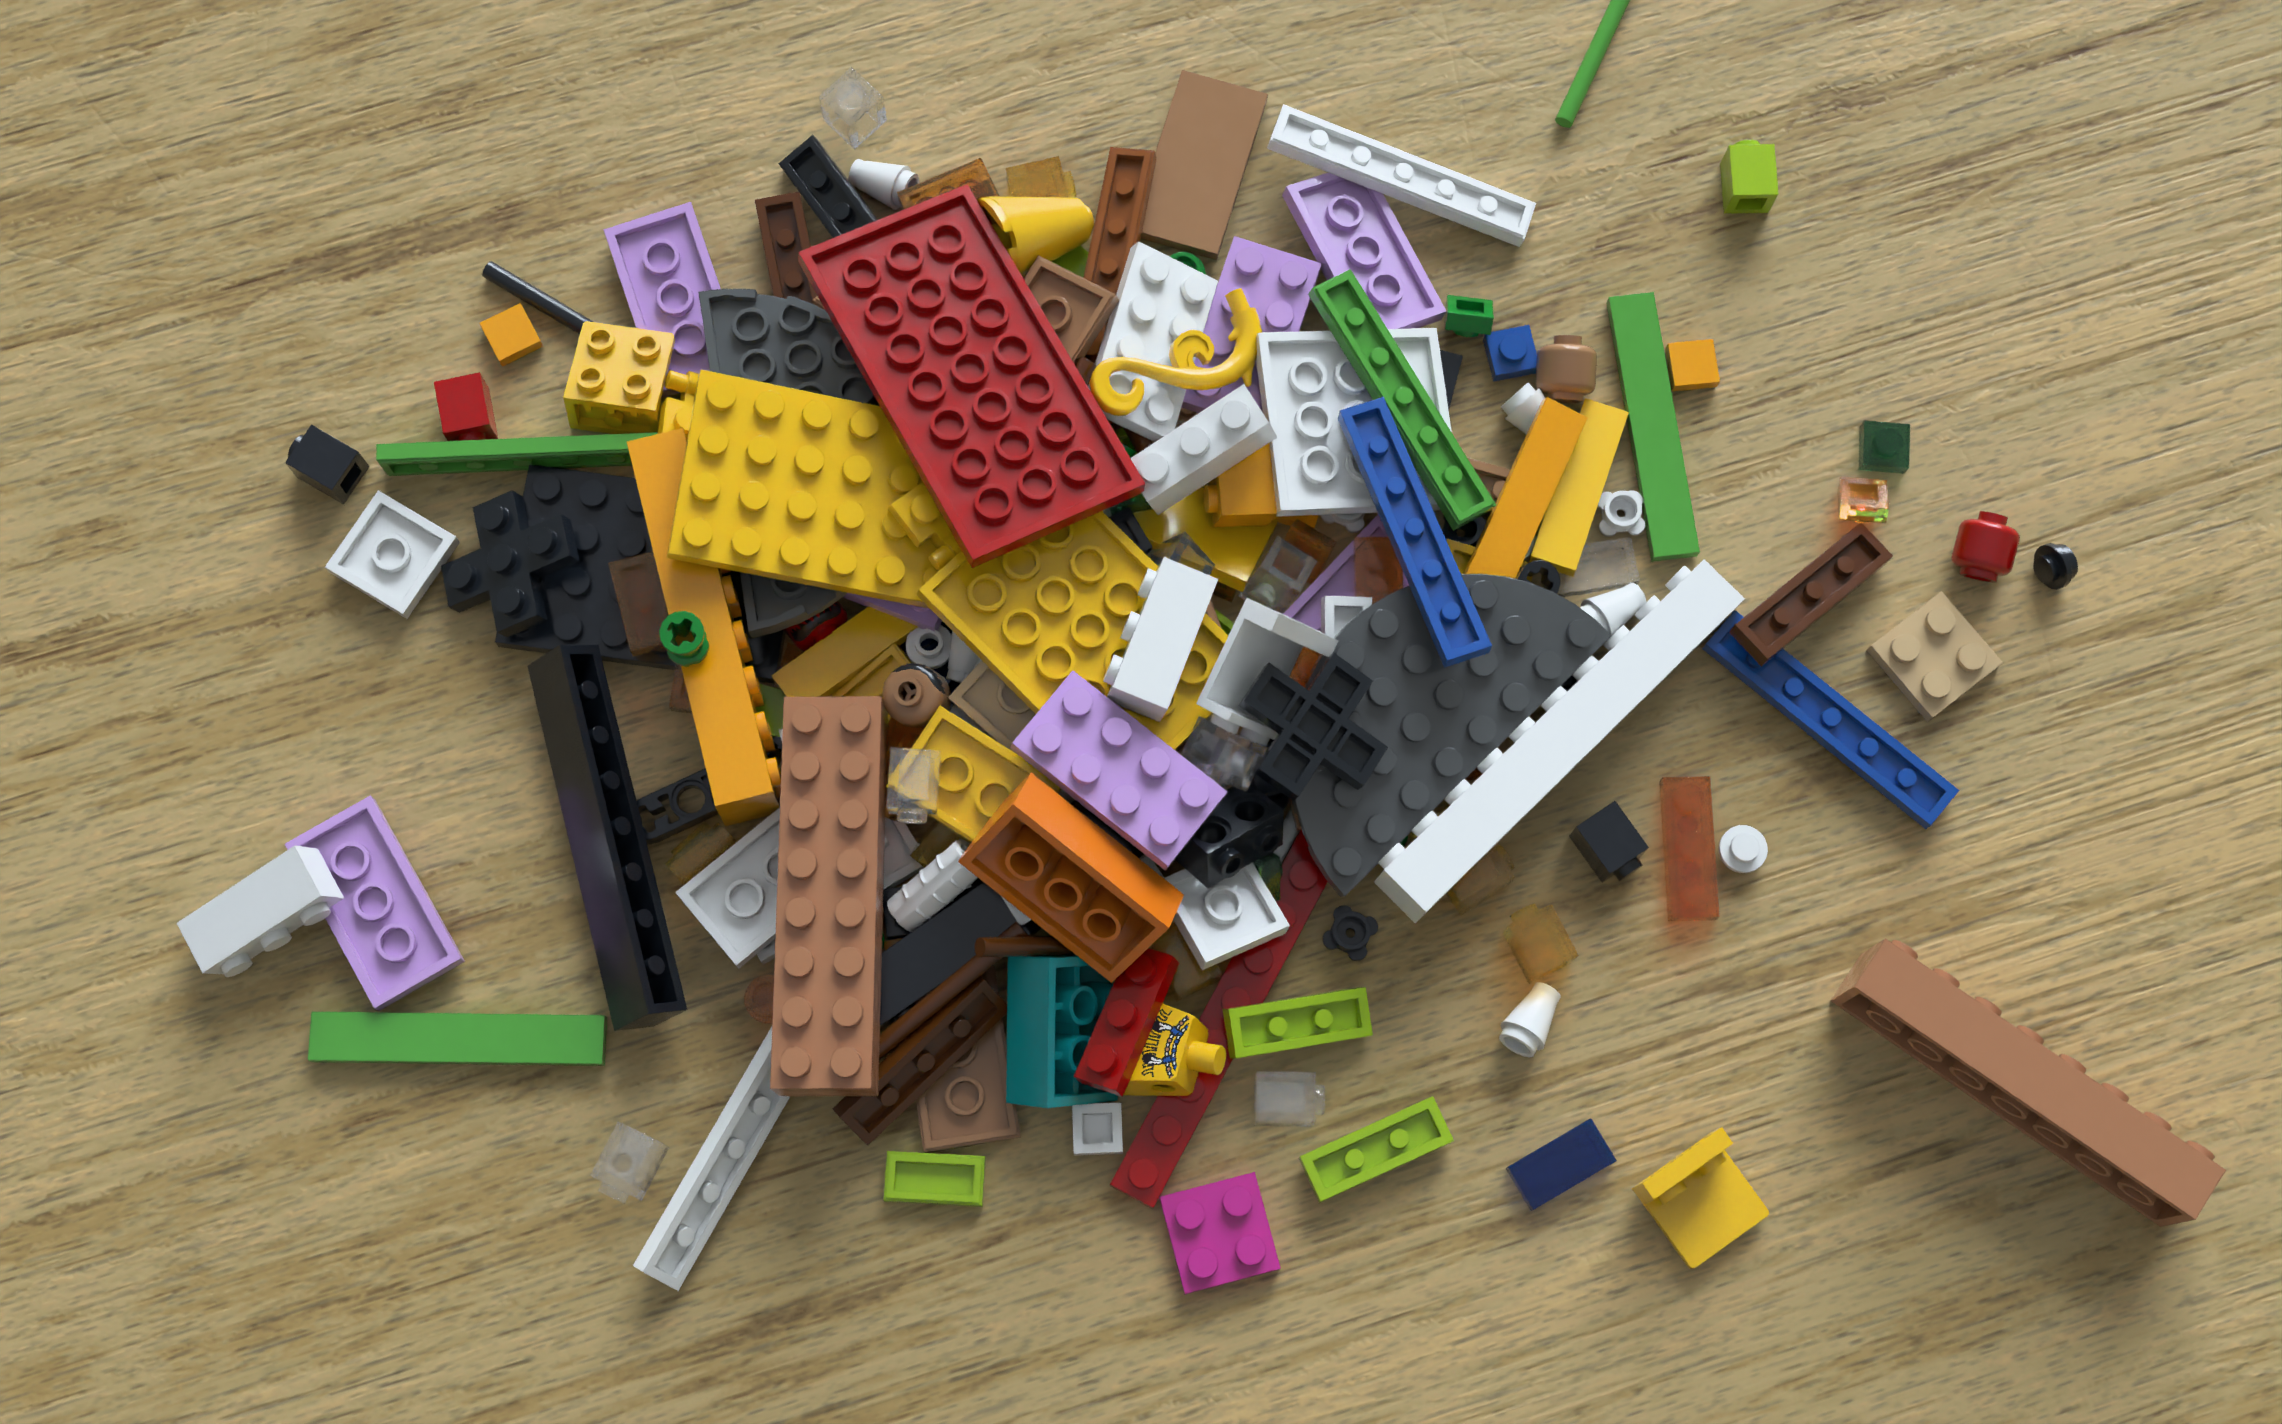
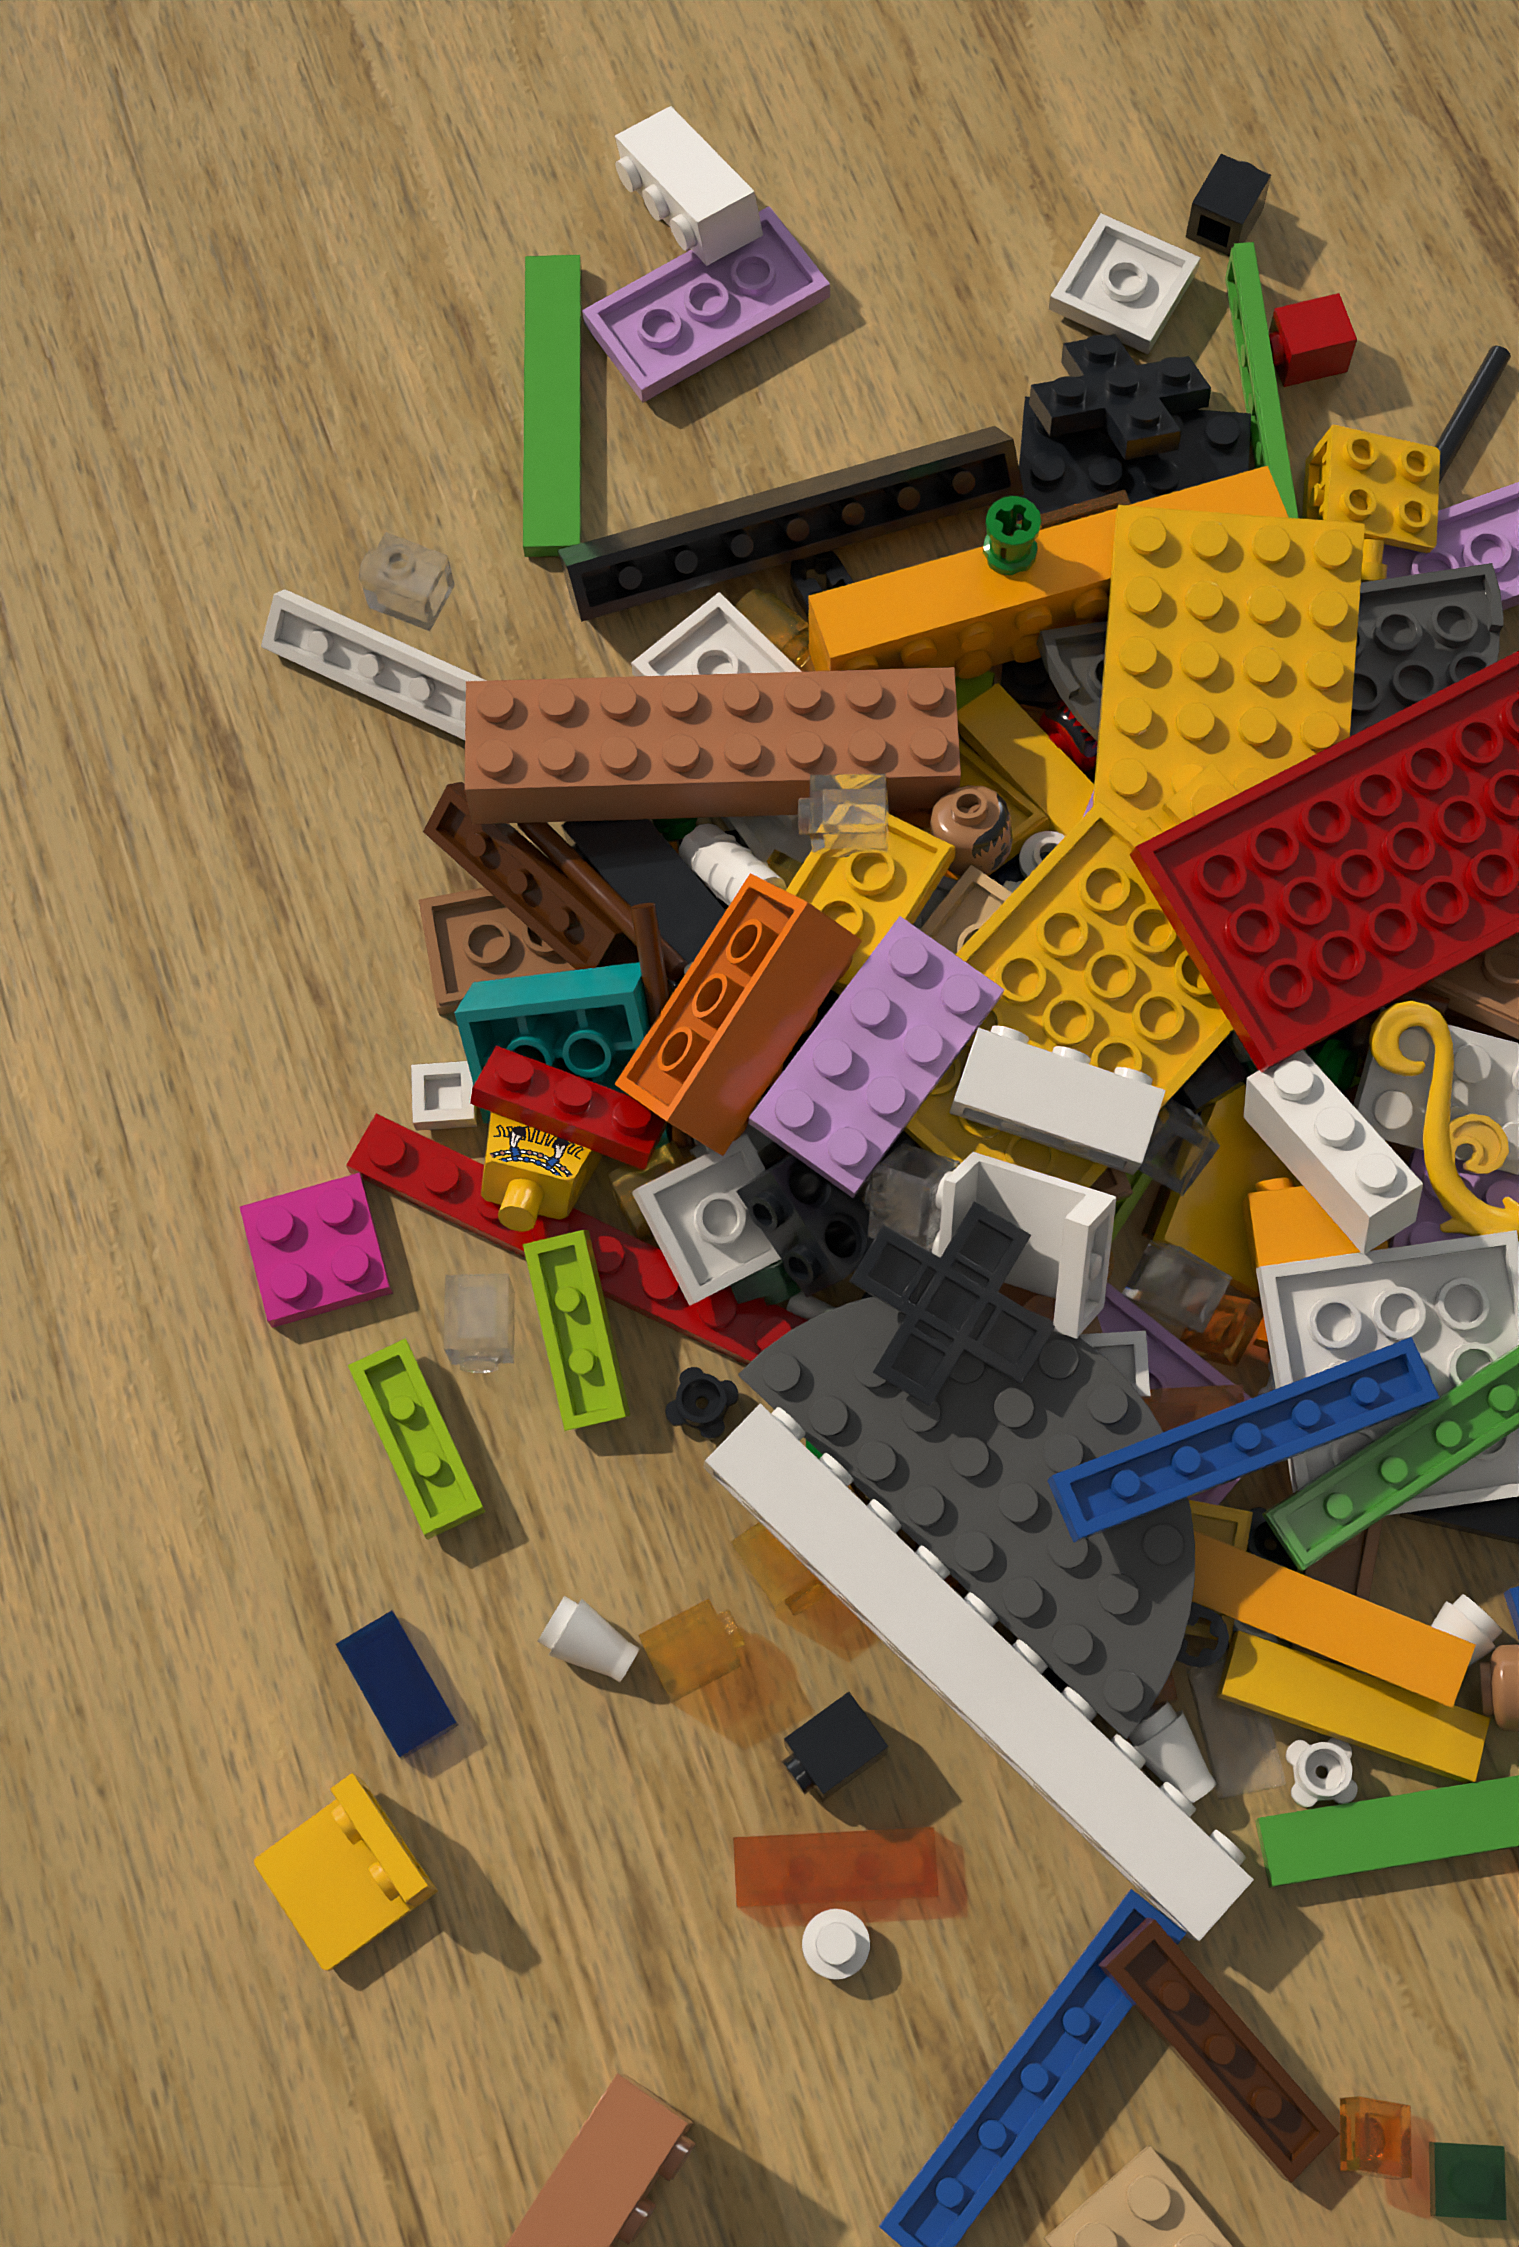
camera: 95 degrees right, 5 degrees down
(511, 334) = (1417, 384): light orange tile -> none
(934, 1178) = (387, 917): lime tile -> none

